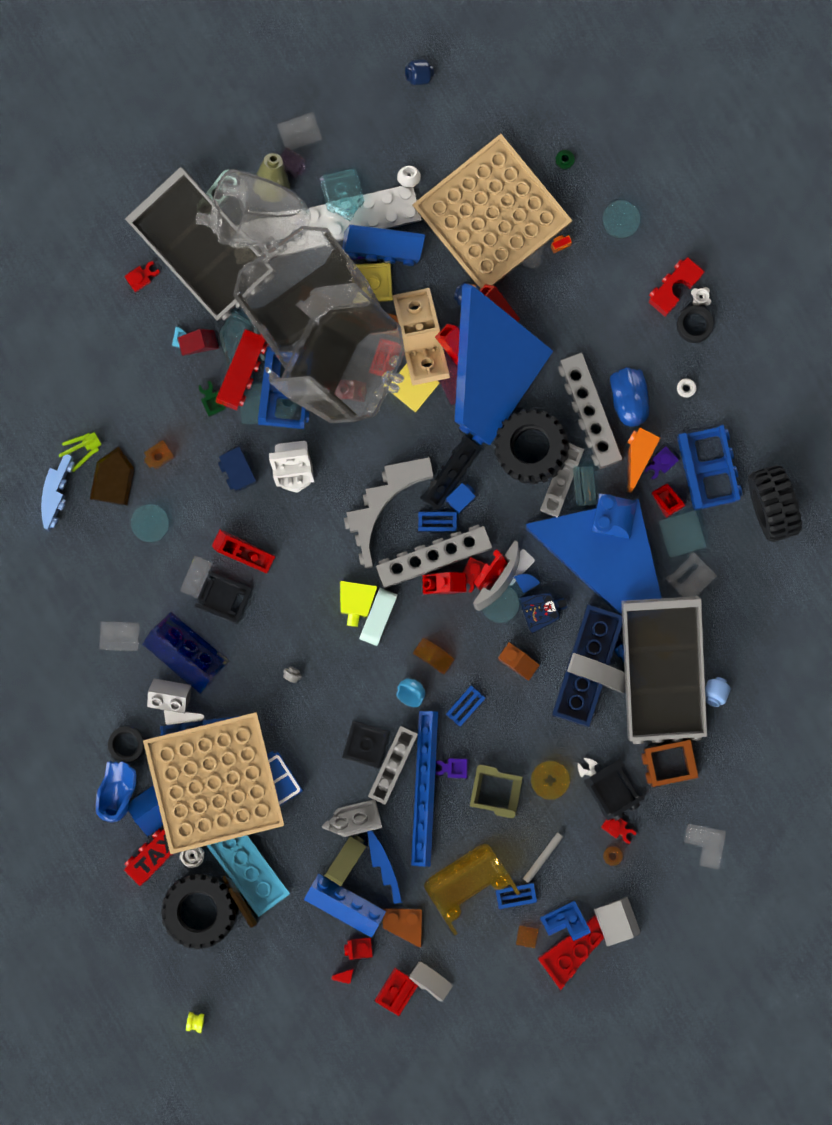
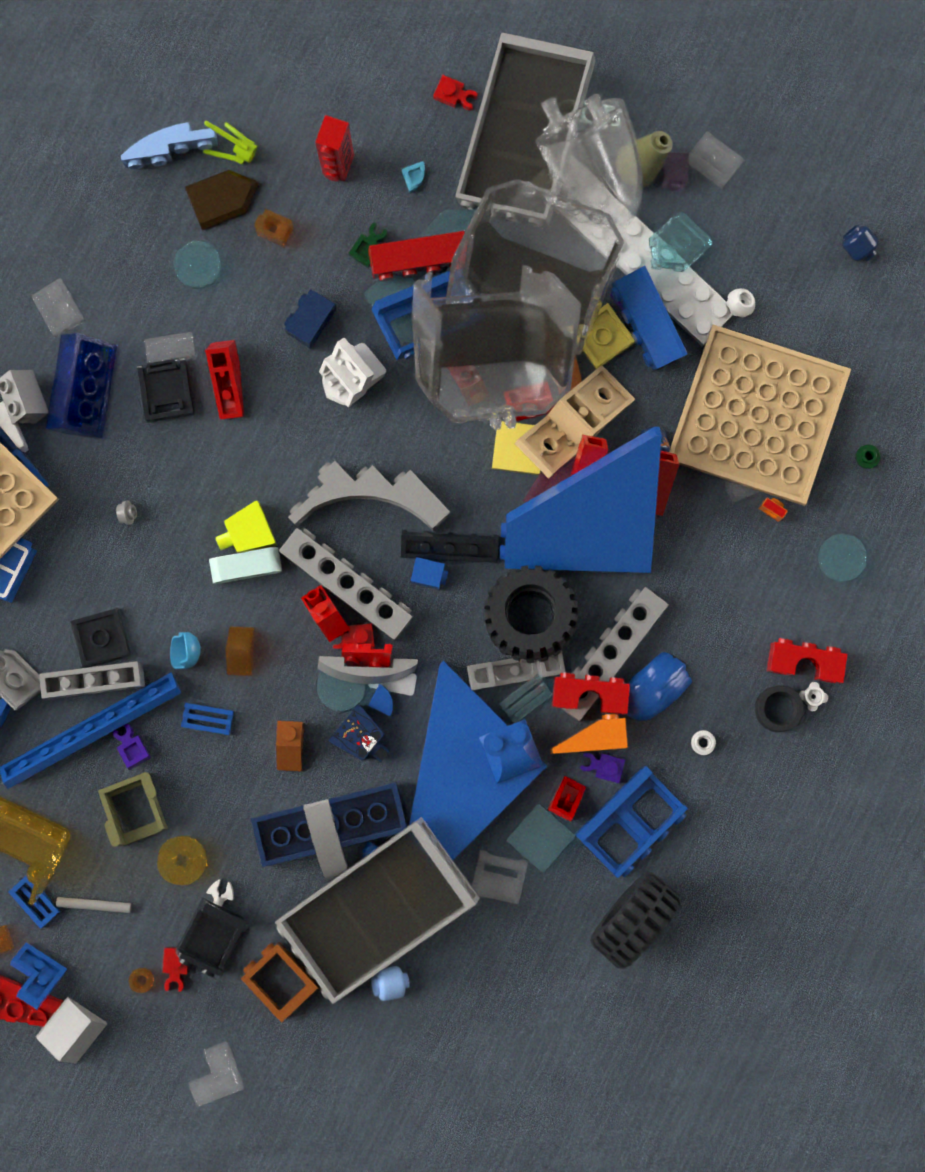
camera: 60 degrees right, 0 degrees up
(137, 379) = (335, 148): none -> red brick
(197, 342) = (421, 193): dark red slope -> none
(437, 529) = (399, 582): blue tile -> none
(619, 426) = (613, 694): none -> red arch

